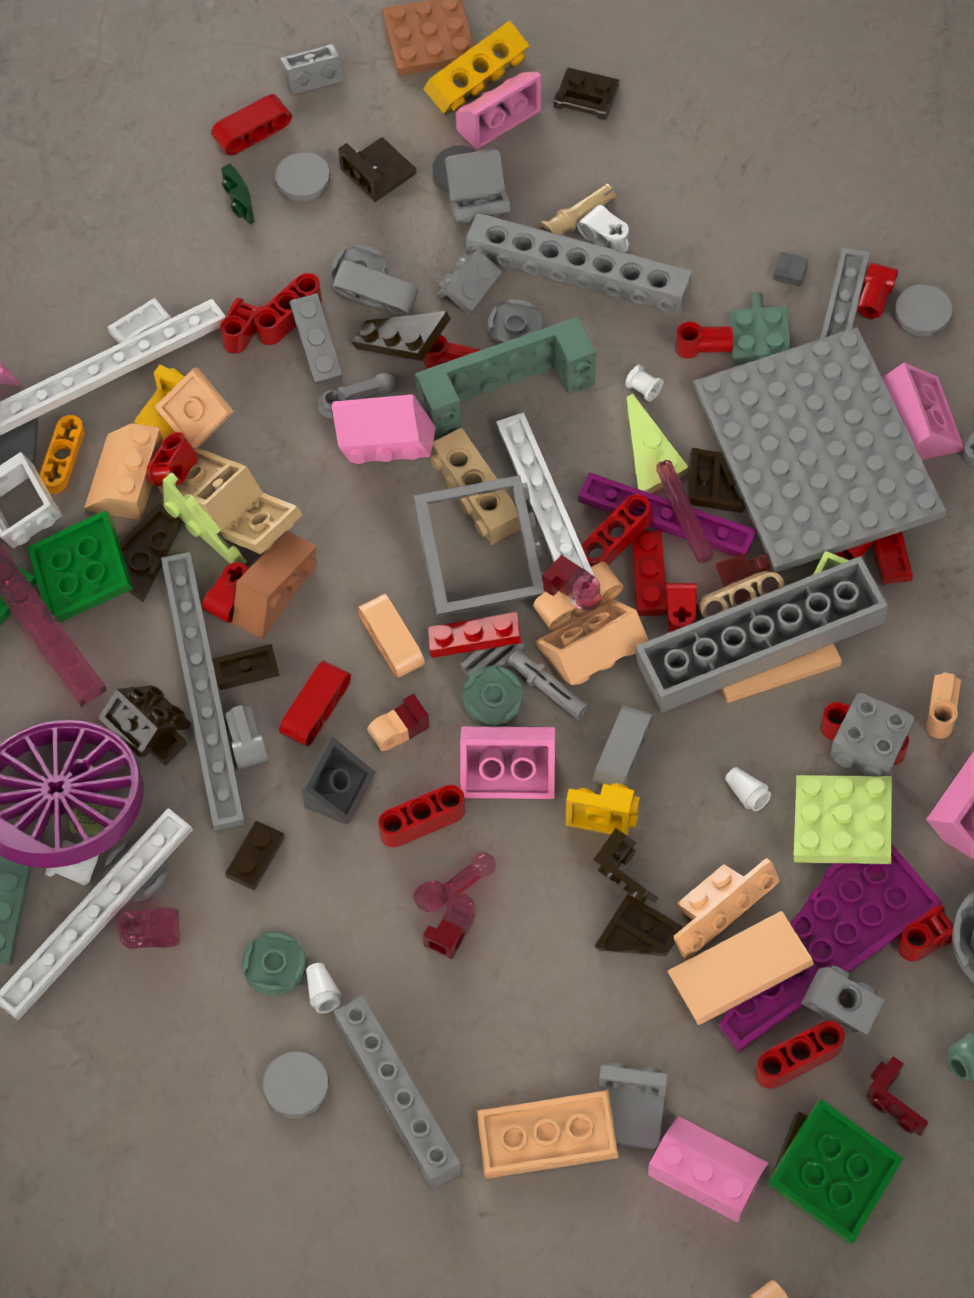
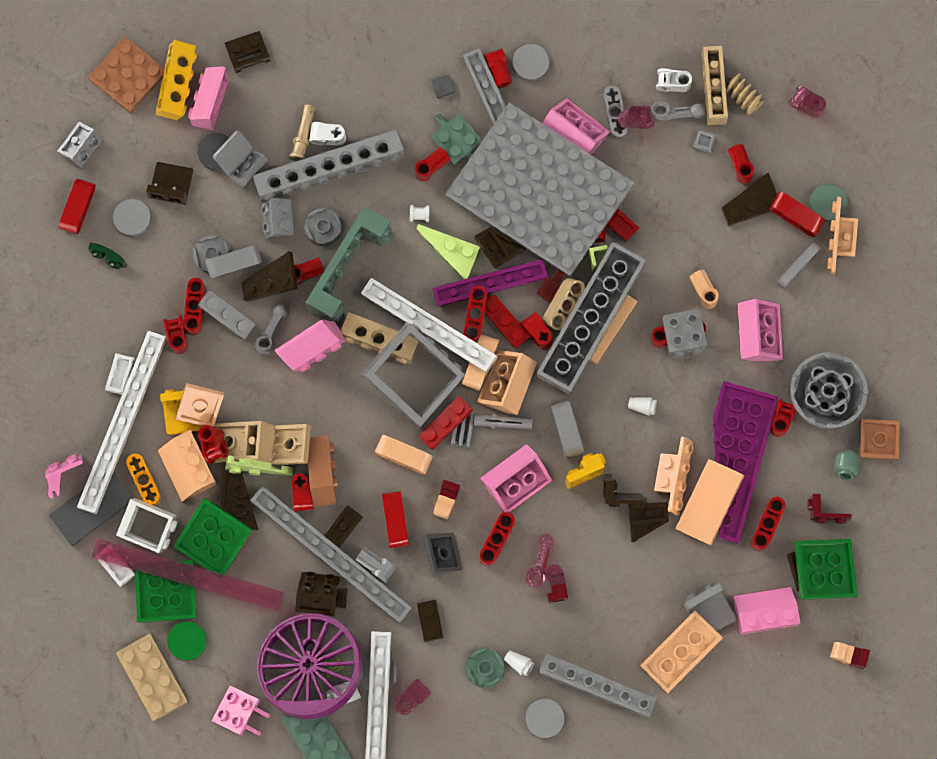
camera: 40 degrees left, 15 degrees up
(492, 696) = (480, 449): sand green tile -> none
(573, 582) = (483, 362): leg -> none
(684, 511) = (500, 276): clear pink axle -> none
(824, 999) = (760, 487): light grey brick -> none
(843, 819) = (701, 387): yellowish green plate -> none

